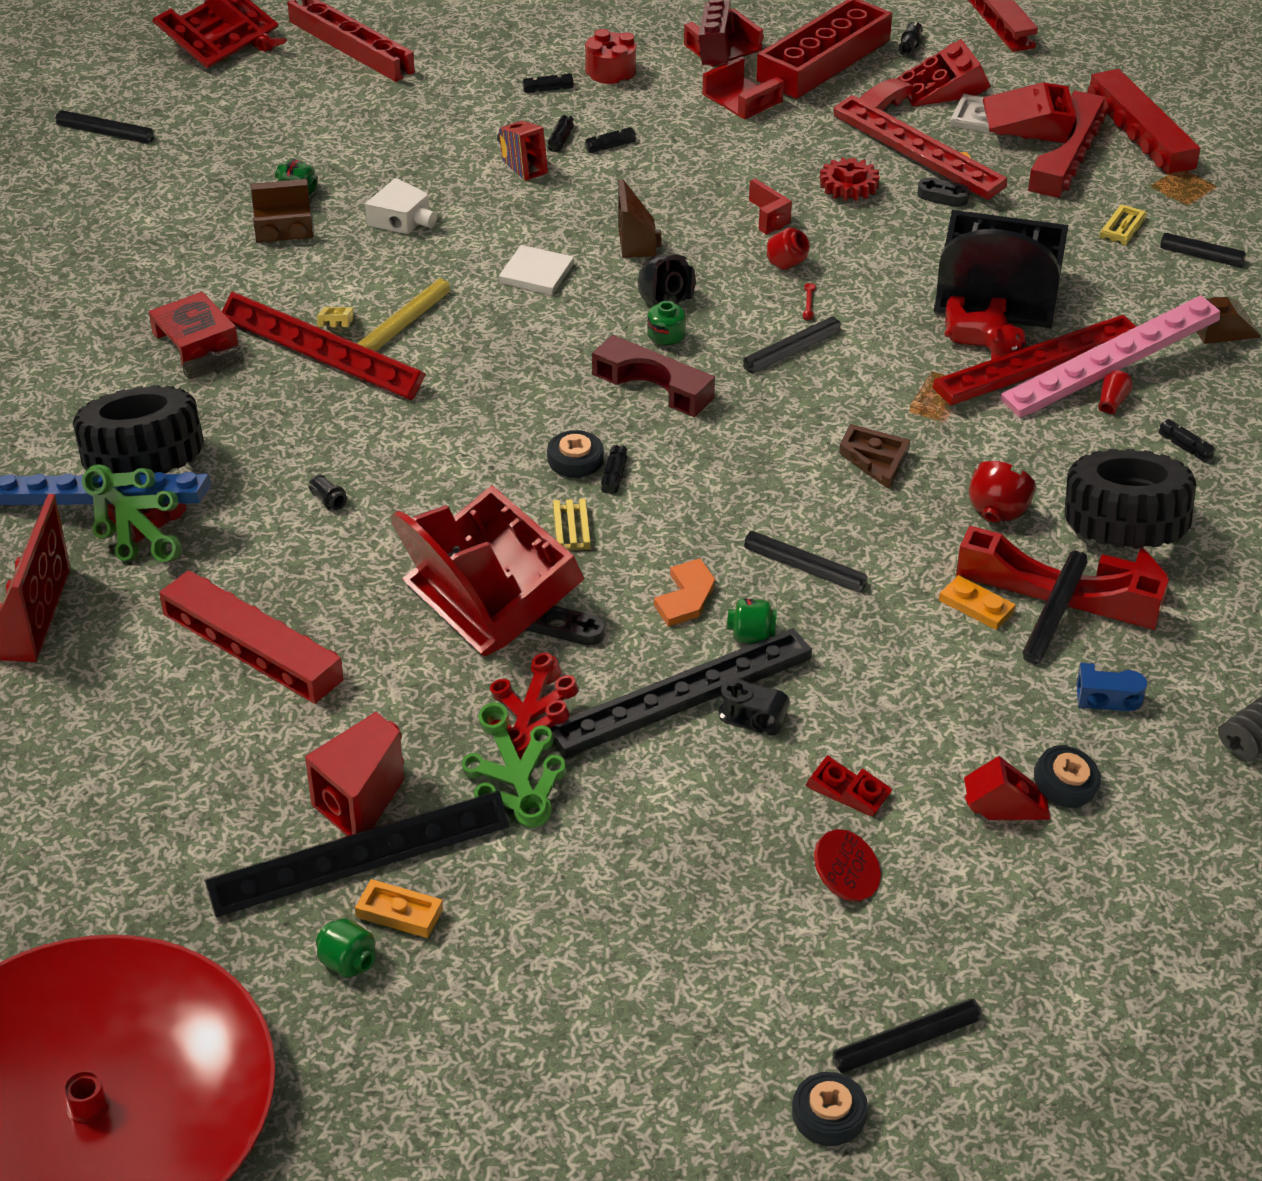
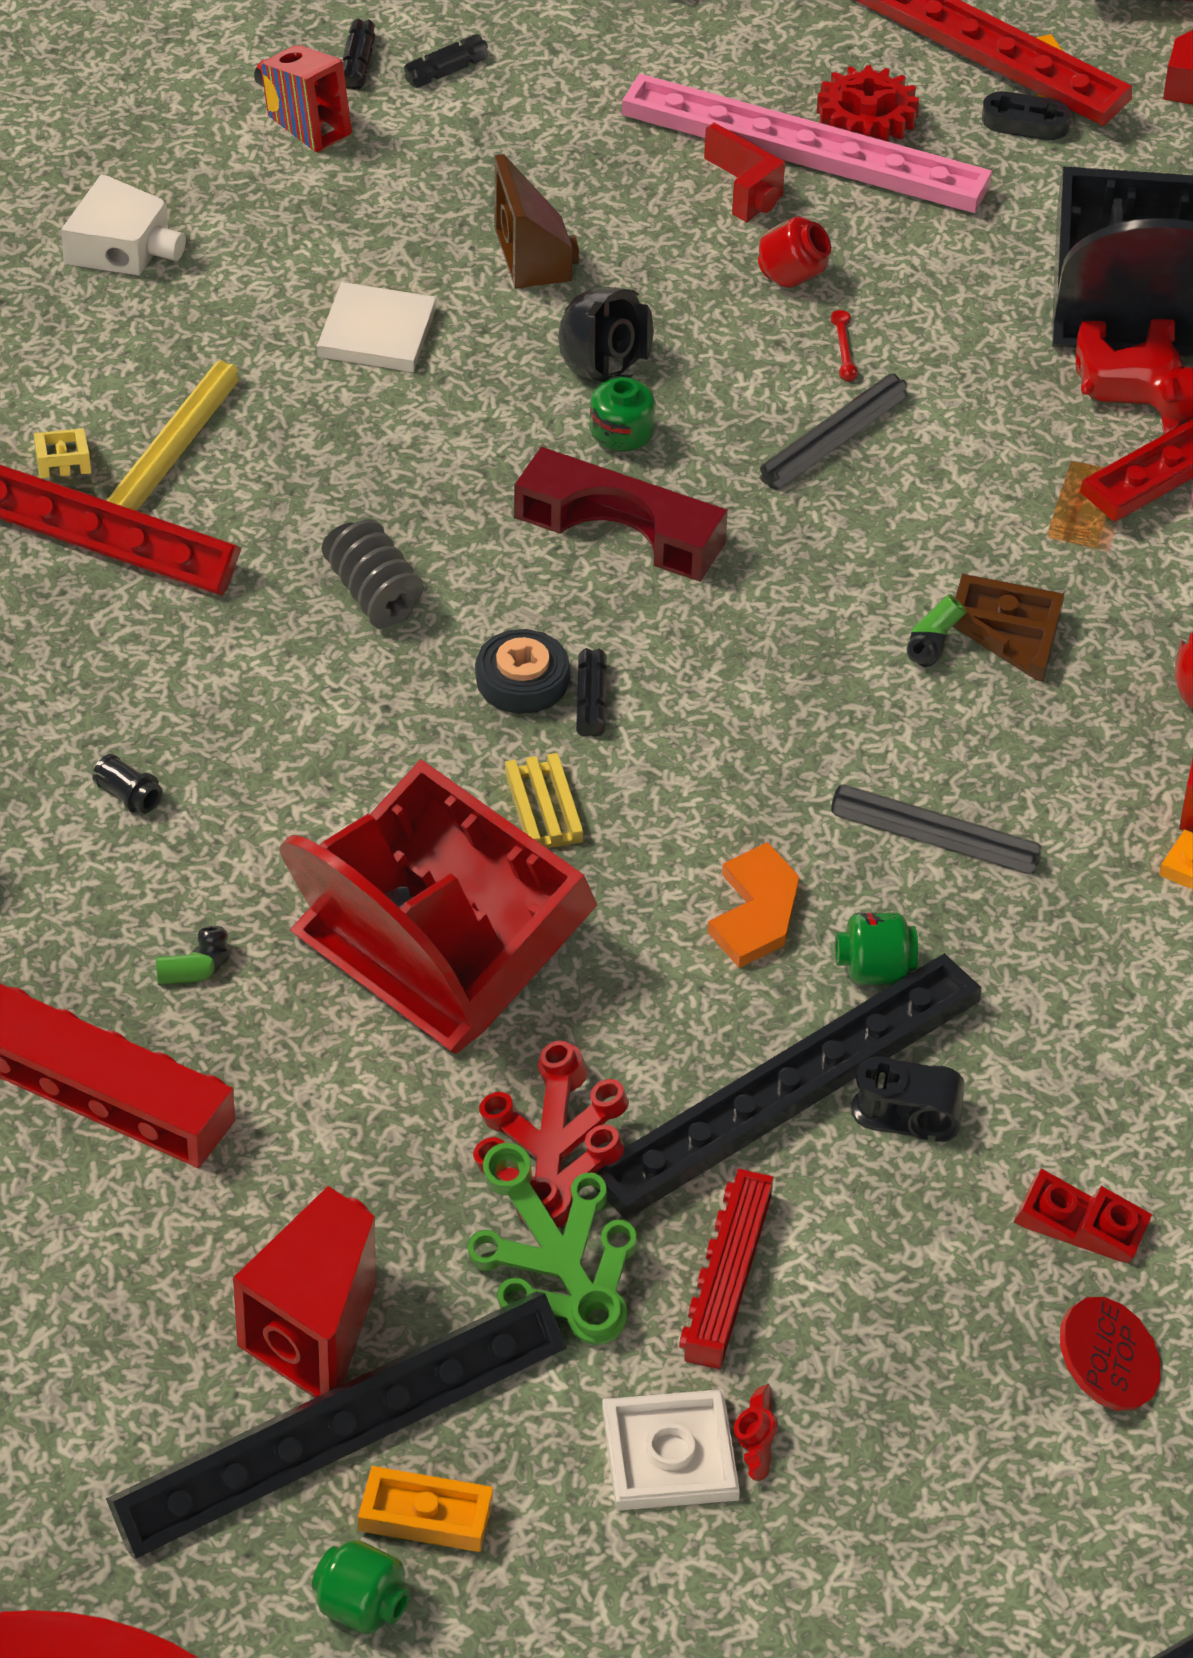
camera: 10 degrees left, 5 degrees up
(342, 594) = (200, 963): none -> arm
(499, 393) = (373, 571): none -> dark grey piece
(559, 892) = (670, 1450): none -> white tile
(582, 620) = (598, 1000): black beam -> none
(615, 888) = (756, 1430): none -> red piece
(619, 793) = (728, 1270): none -> red piece
(814, 196) = (810, 143): none -> bright pink plate
(824, 456) = (930, 633): none -> arm

